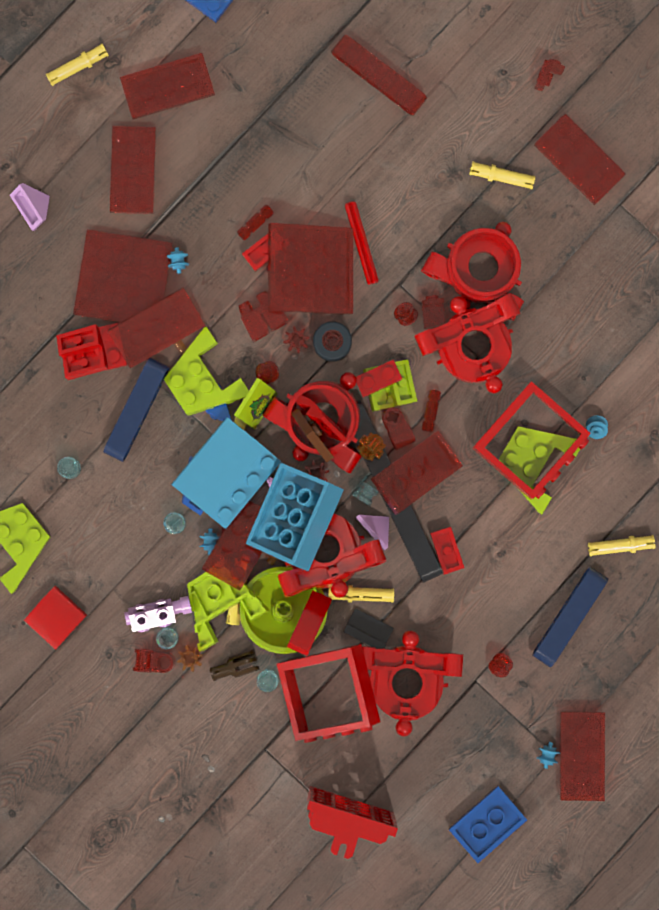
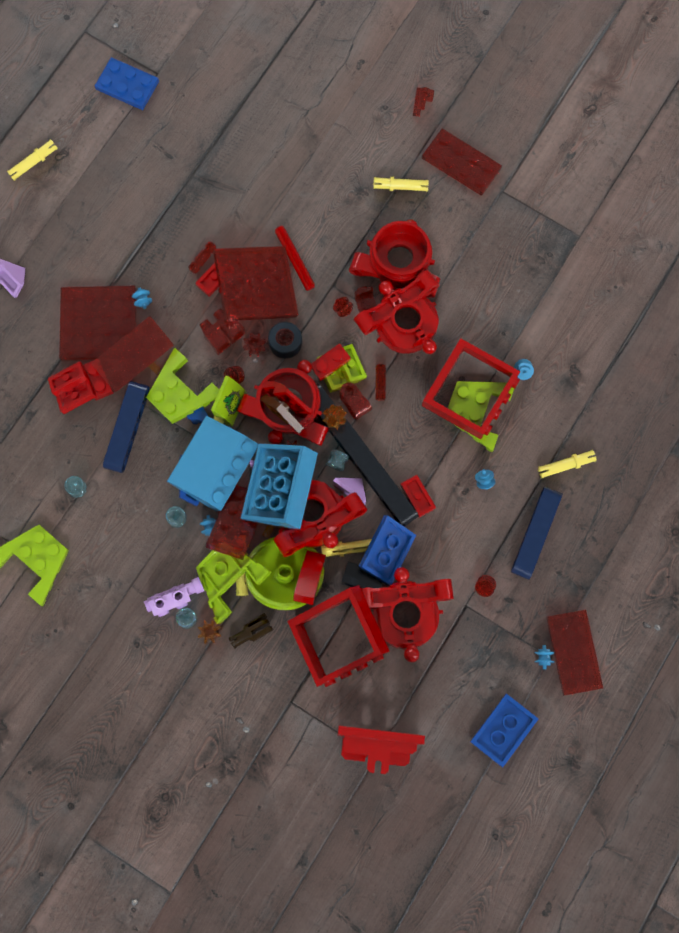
camera: 10 degrees left, 10 degrees down
(55, 617) = (83, 619): red slope -> none
(133, 170) = (92, 234): clear red plate -> none
(151, 661) = (173, 641): clear red piece -> none
(167, 86) = (110, 163): clear red plate -> none
(268, 682) = (281, 636): clear light blue wheel -> none
(379, 75) = (283, 125): clear red beam -> none
(400, 606) = (387, 550): none -> blue plate
(416, 472) = (378, 433): clear red plate -> none
(525, 546) = (485, 479): none -> dark azure wheel

